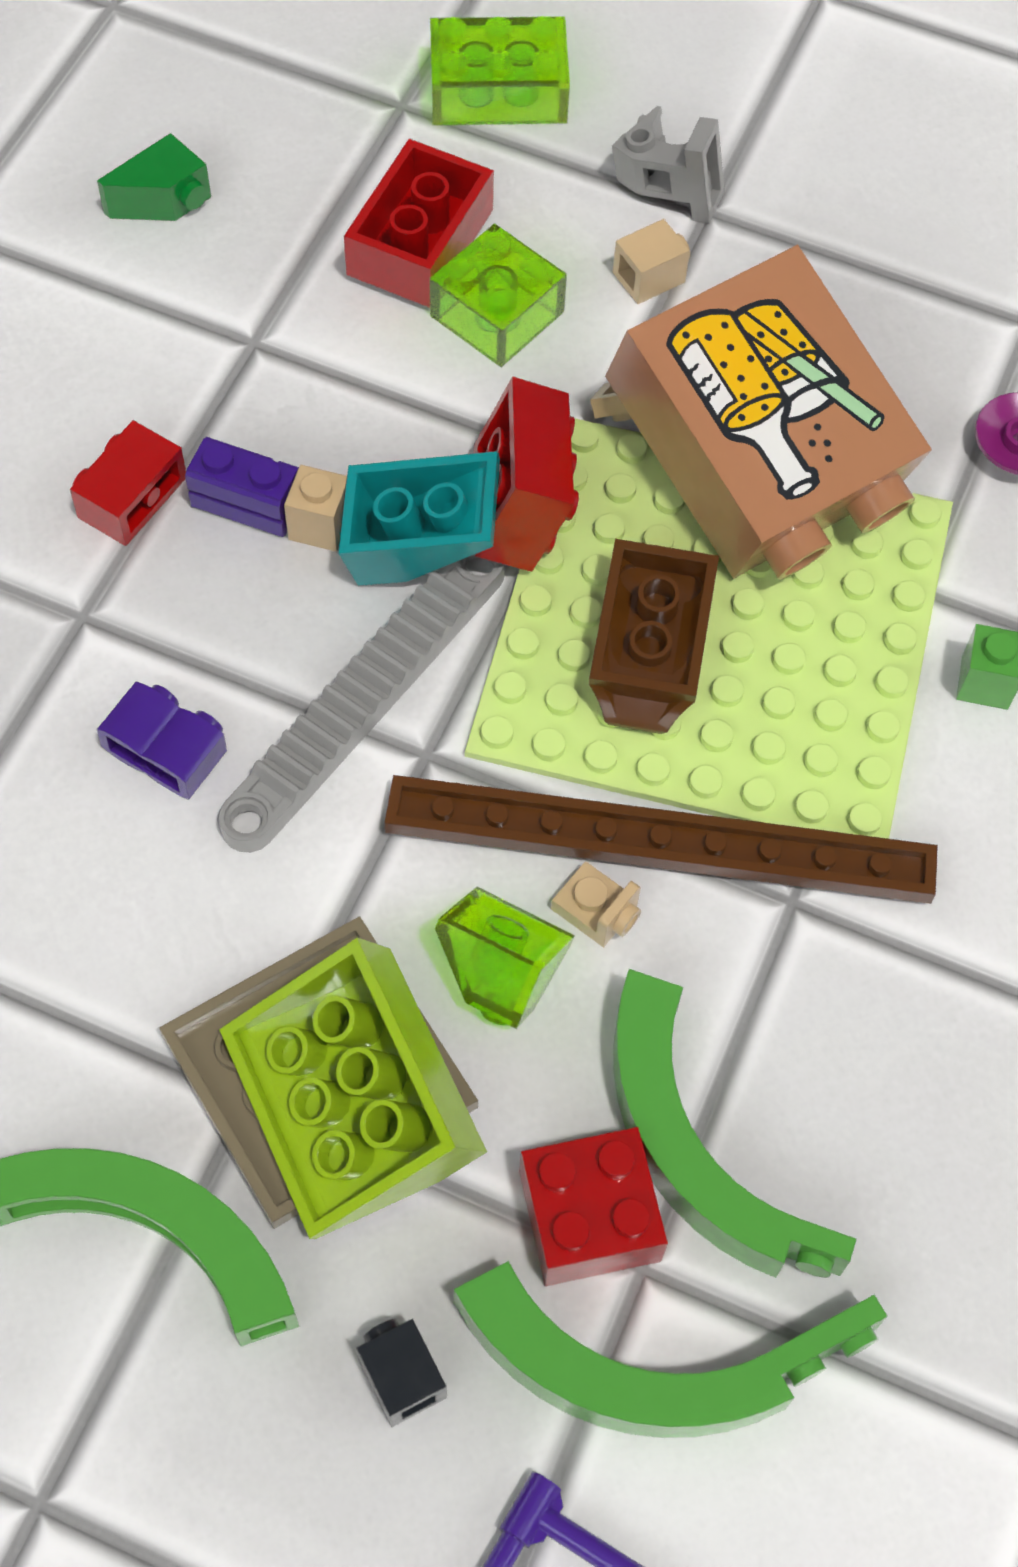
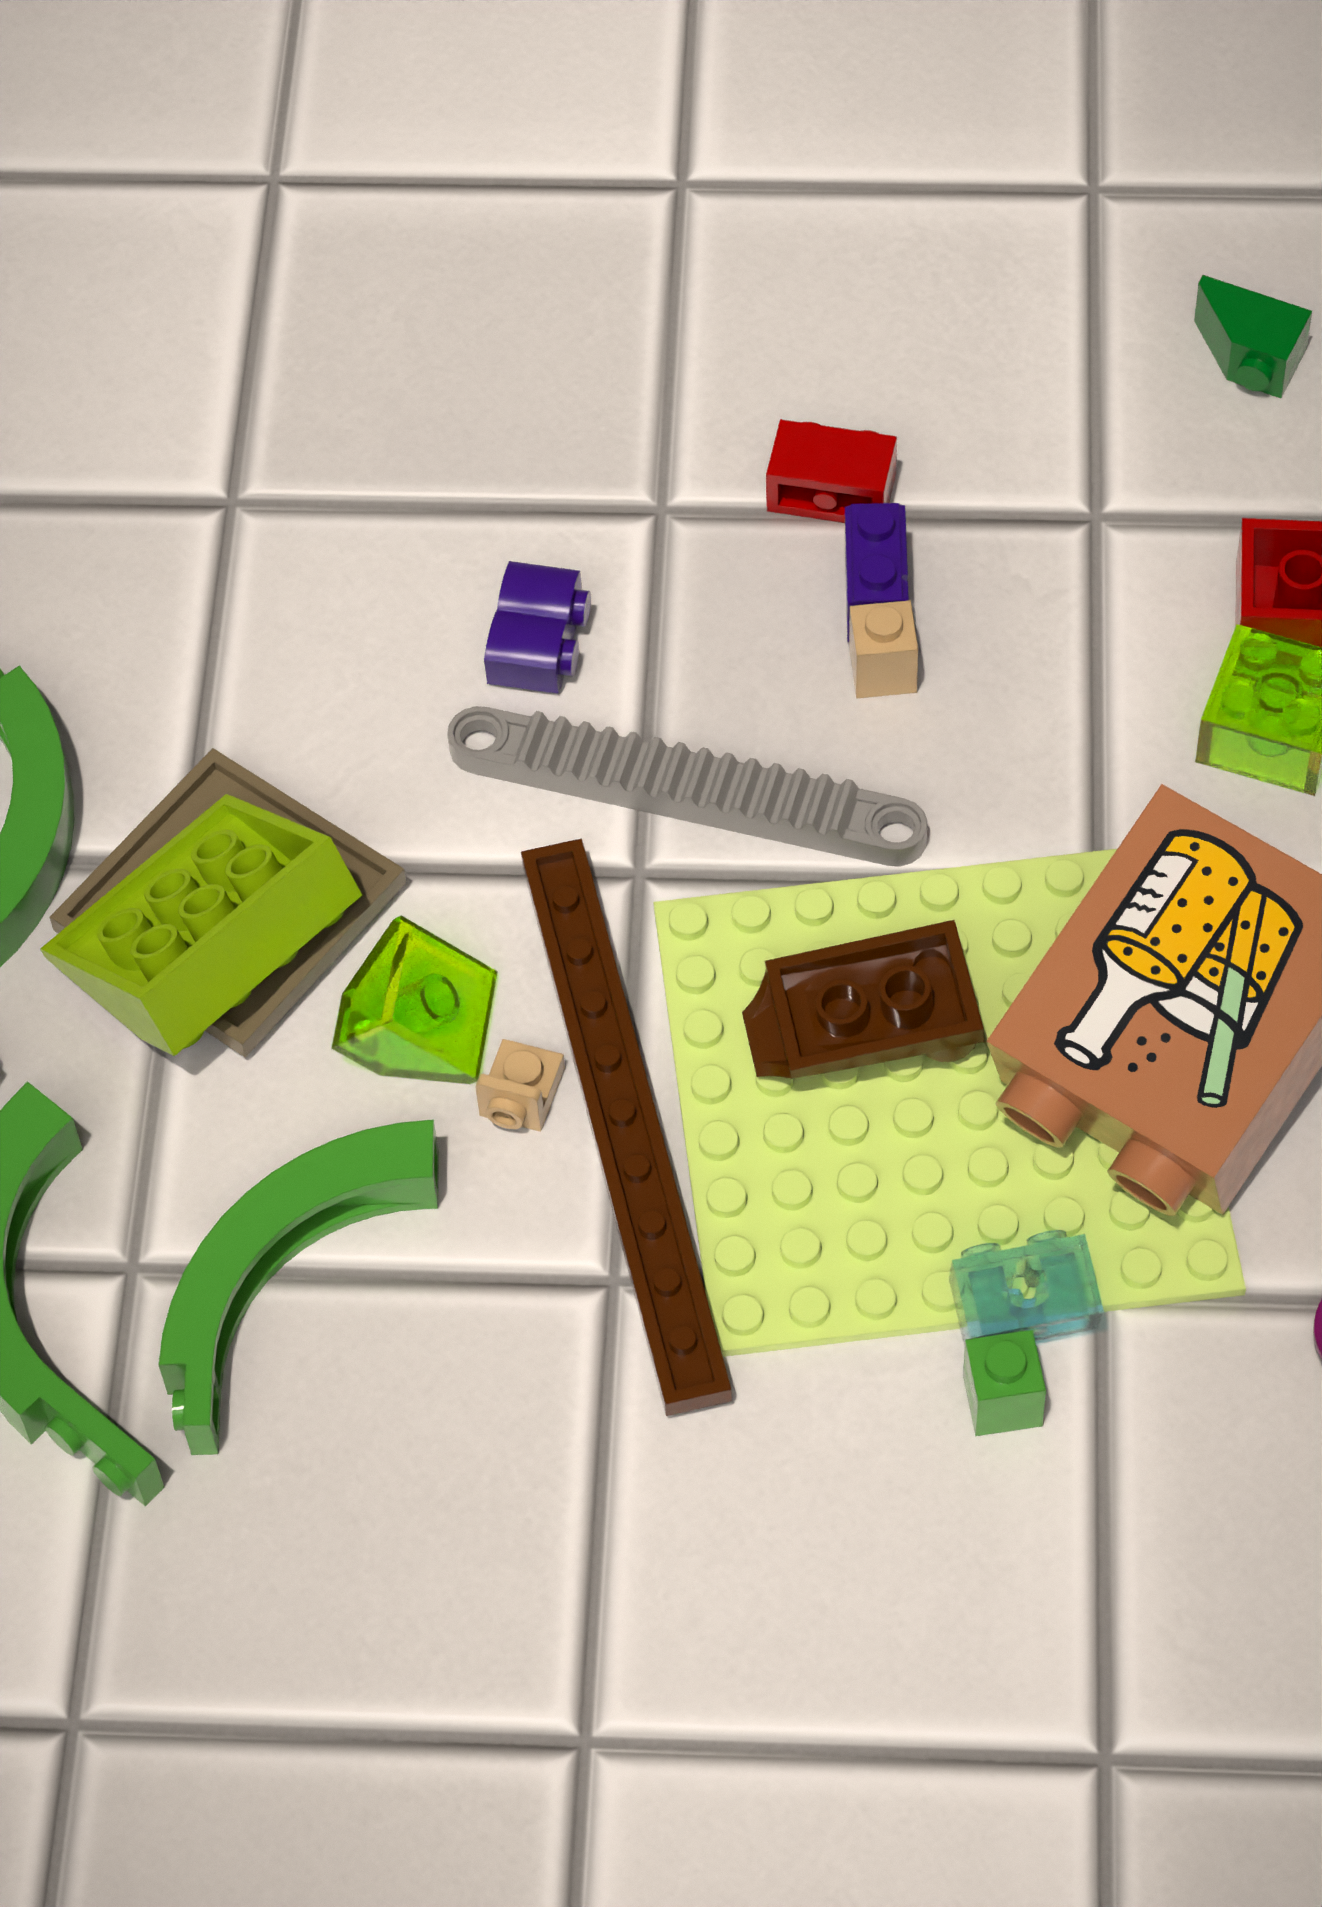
camera: 75 degrees right, 5 degrees down
(417, 515) = (895, 721): teal slope -> none
(536, 471) = (1000, 805): red brick -> none
(592, 1206) = (161, 1180): red brick -> none
(932, 622) = (1055, 1264): none -> clear light blue brick

